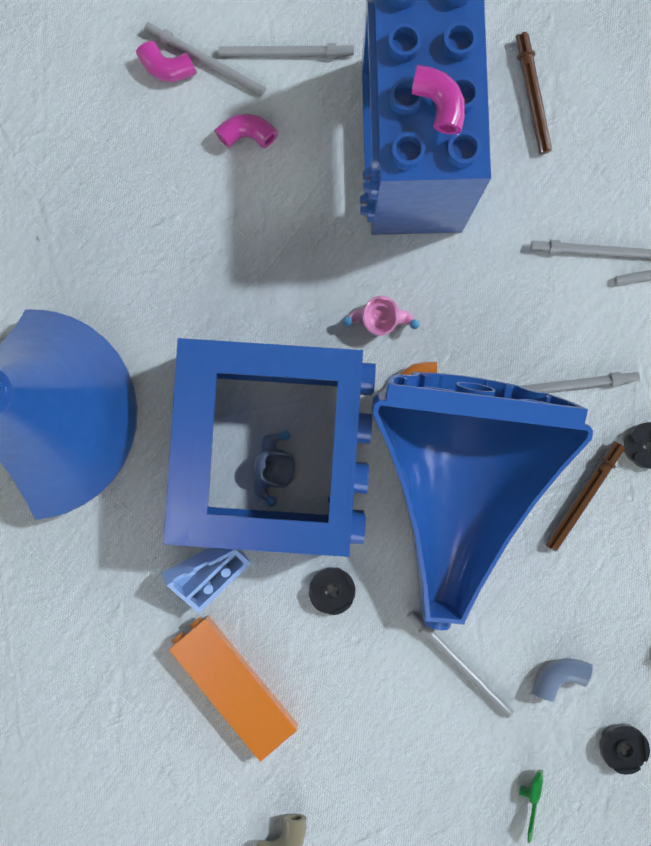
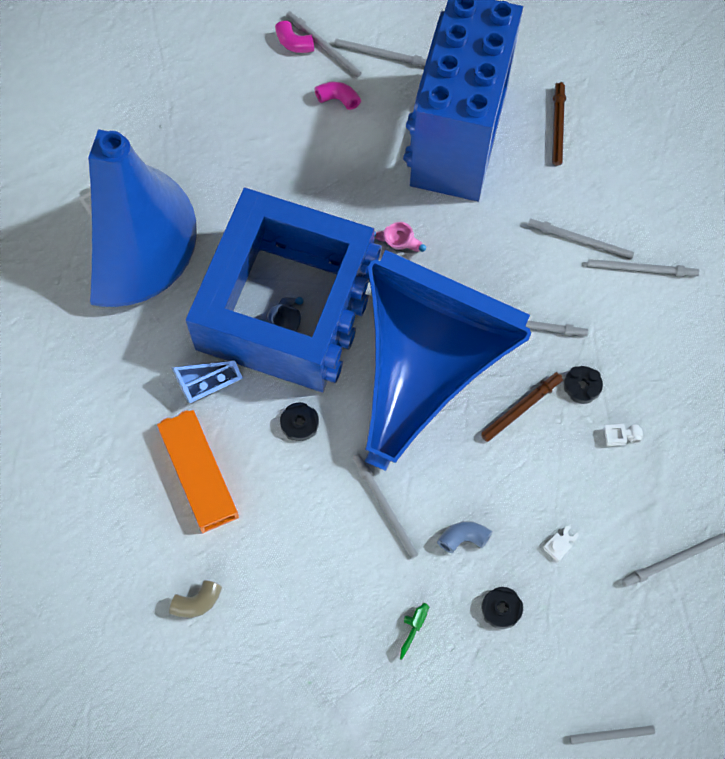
camera: 10 degrees right, 20 degrees down
(446, 96) = (472, 65): dark pink cylinder -> none

